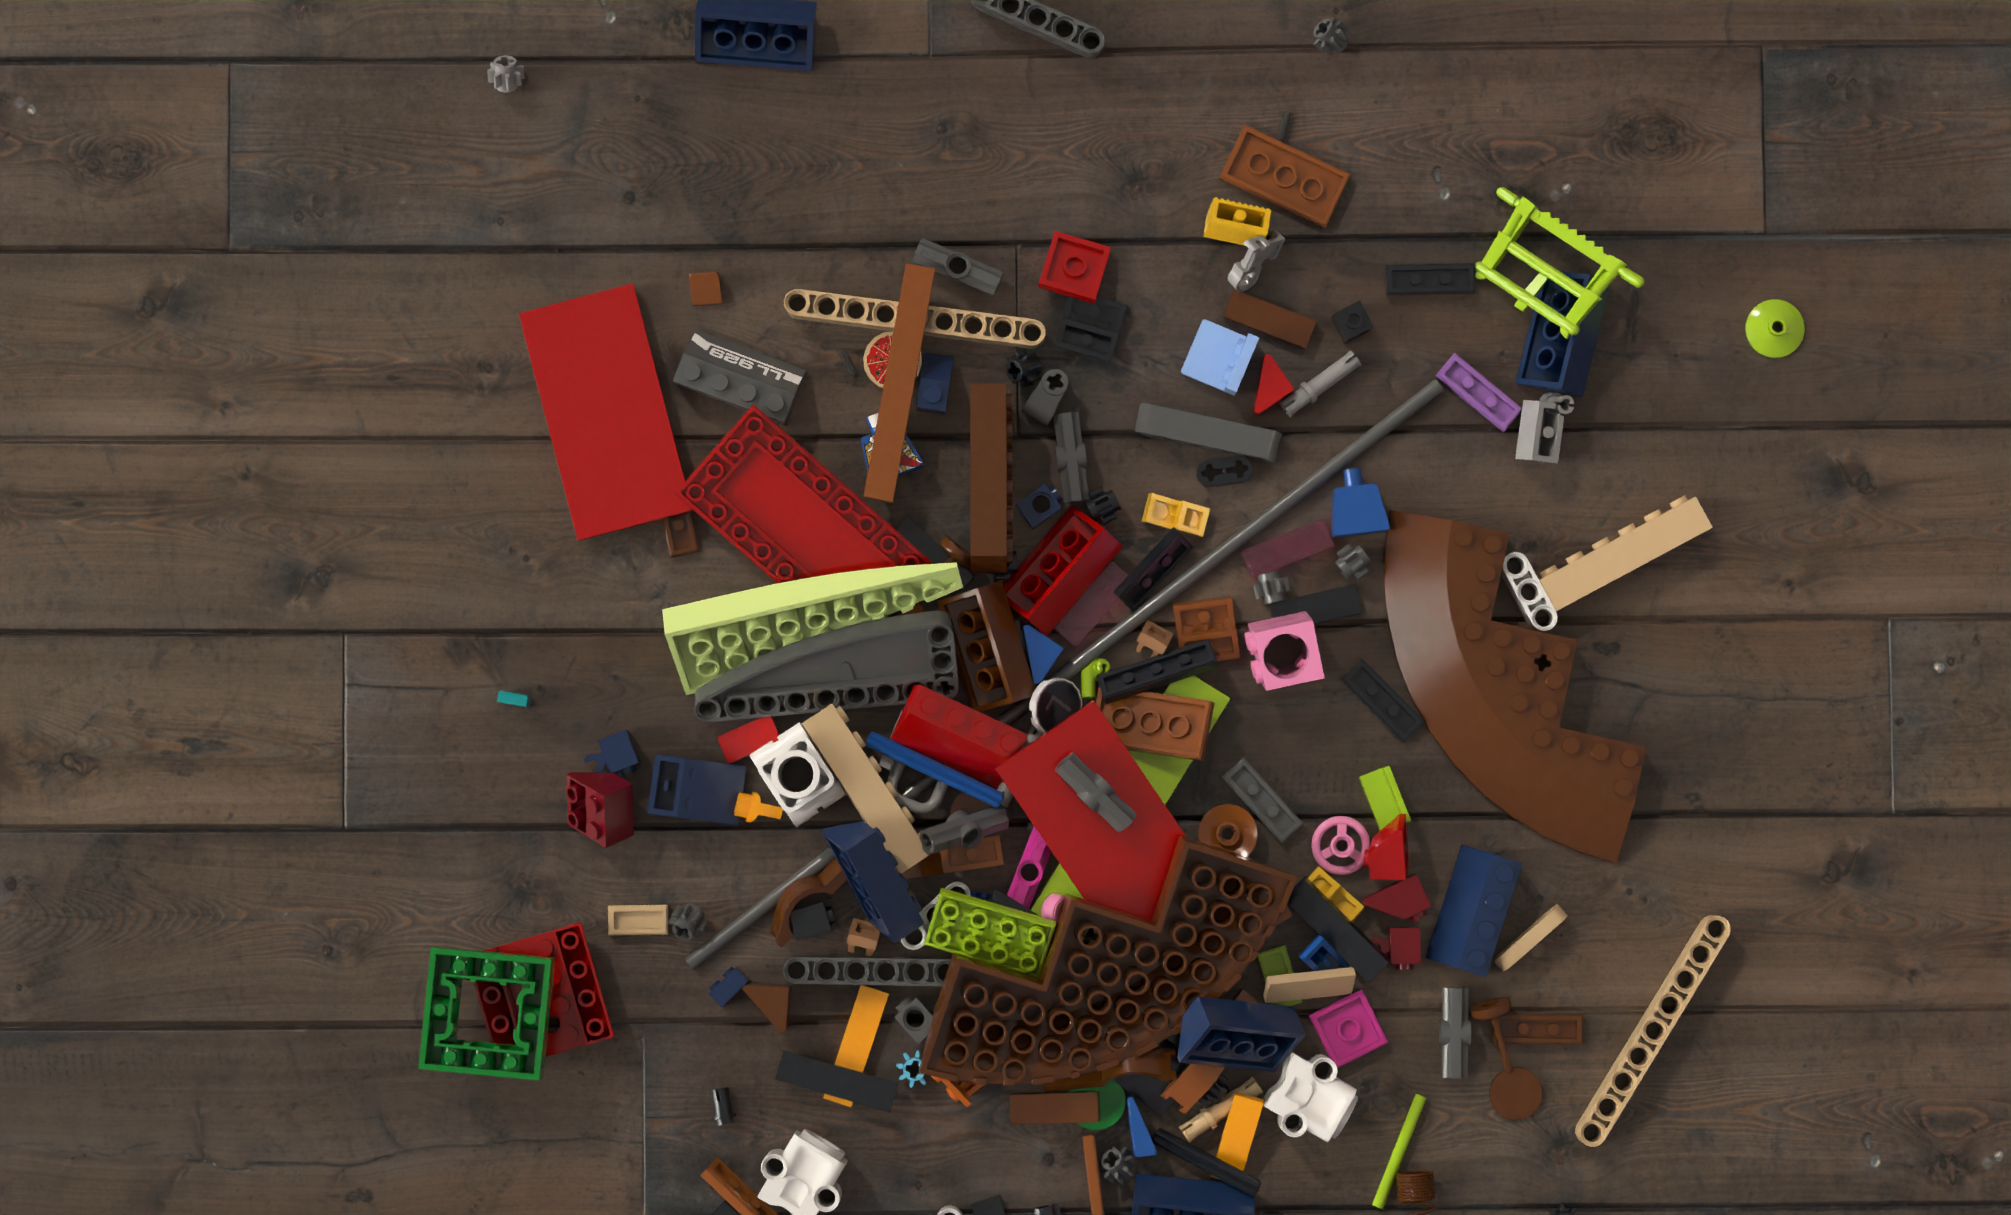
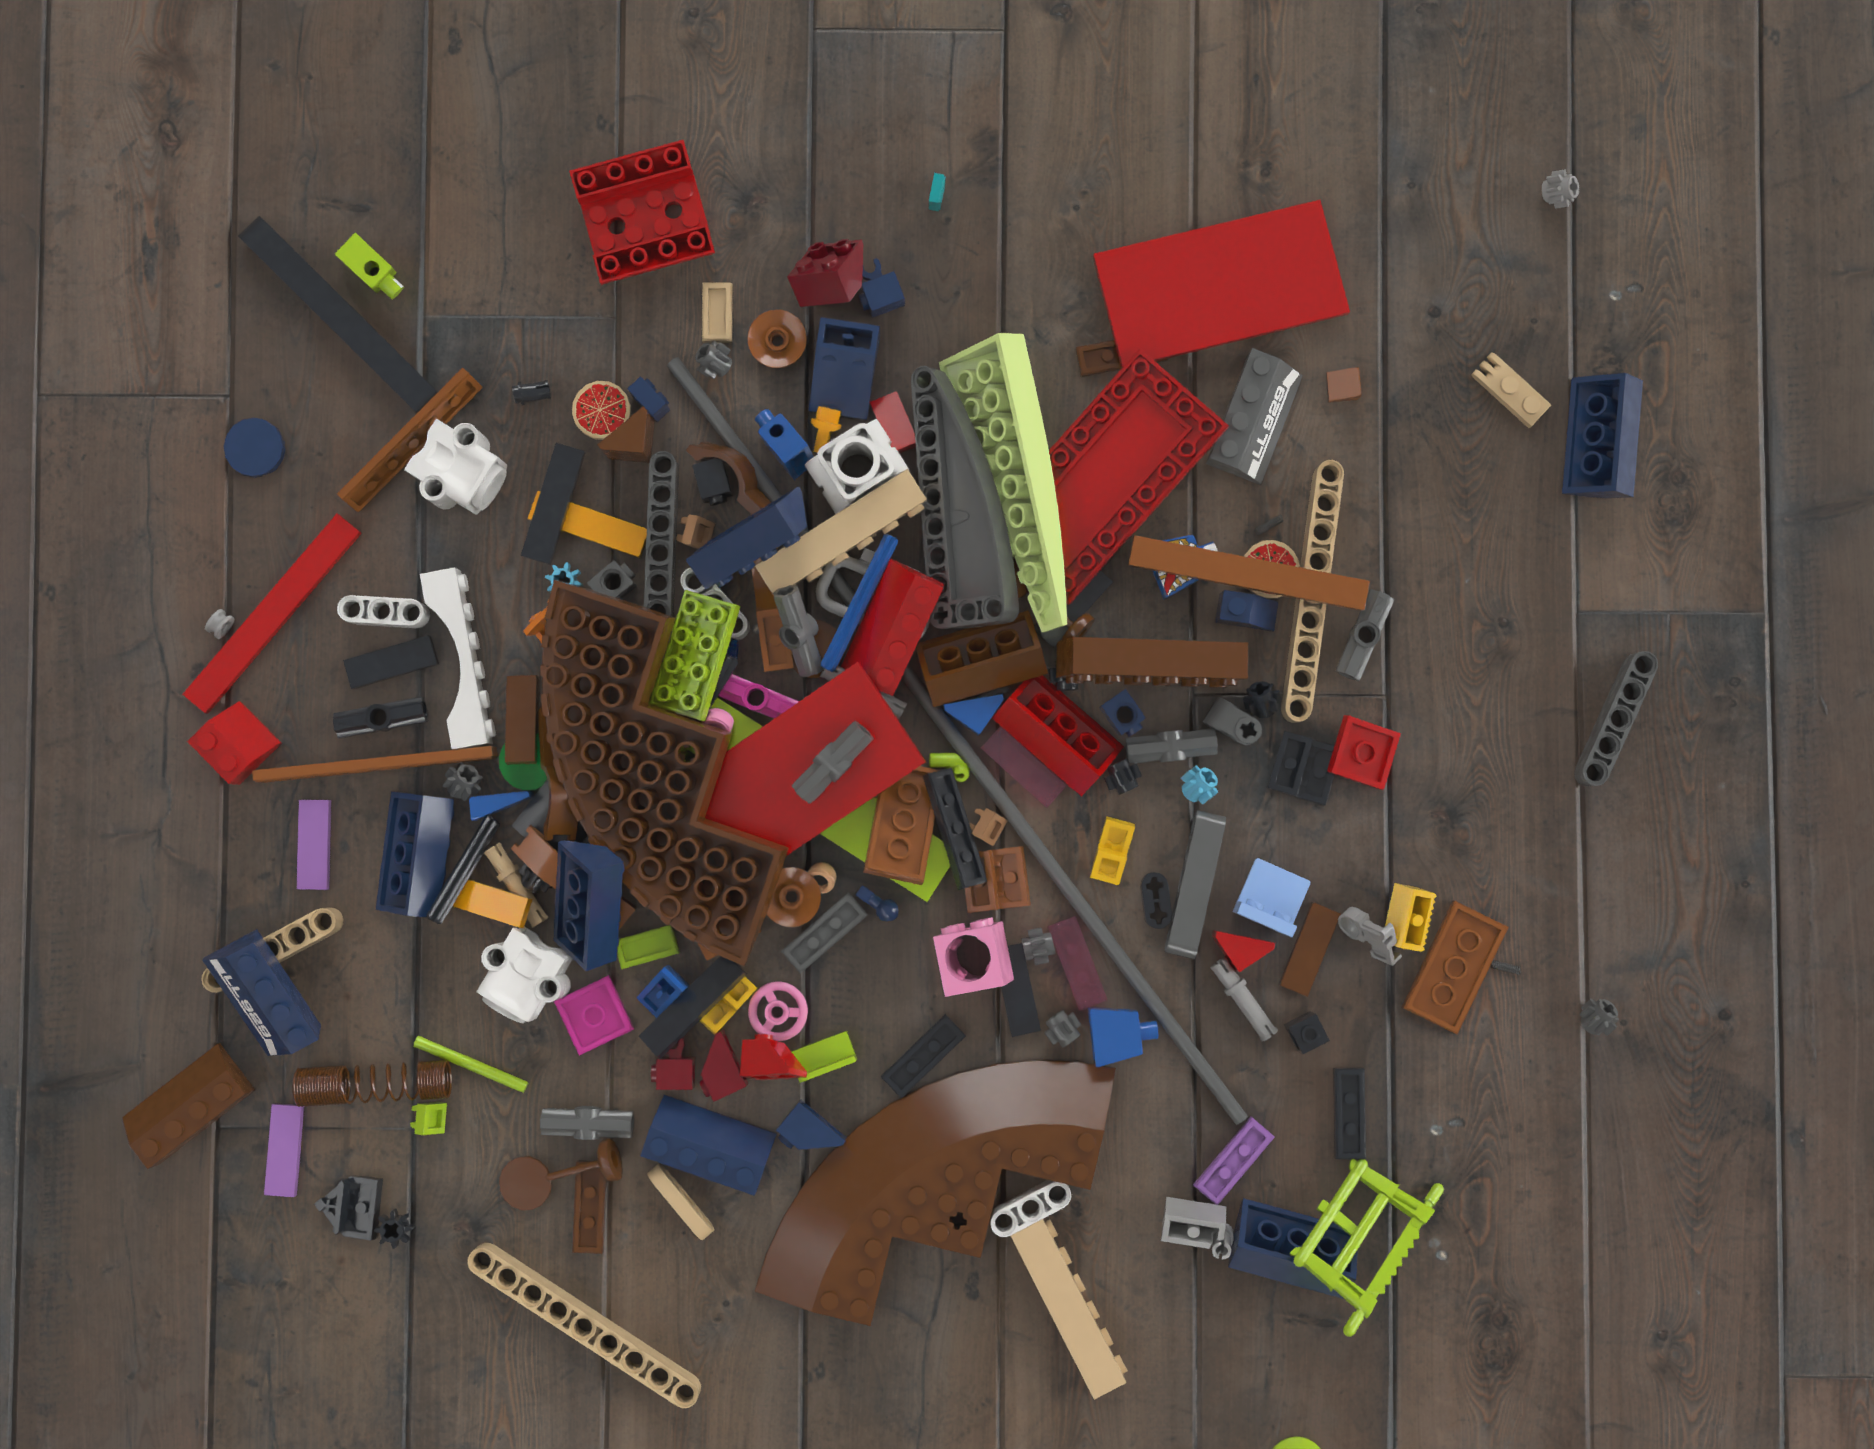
camera: 90 degrees right, 0 degrees up
(439, 1040) = (629, 110): green brick -> none
(650, 858) = (777, 324): none -> dark orange dish
(709, 121) = (1511, 390): none -> tan hinge
(739, 1035) = (600, 409): none -> red tile
(780, 843) = (784, 442): none -> blue torso
(932, 1187) = (468, 720): none -> white arch
(1053, 703) = (924, 723): black tile -> none
(1109, 429) = (1199, 784): none -> medium azure gear
(1153, 569) = (1058, 826): black tile -> none
(1200, 800) = (827, 871): none -> light nougat piece
(1238, 739) = (885, 909): none -> dark blue arm
(1309, 985) = (637, 976): tan tile -> none
(1453, 1190) = (429, 1118): none -> lime tile
(1457, 813) = (808, 1129): none -> dark blue slope

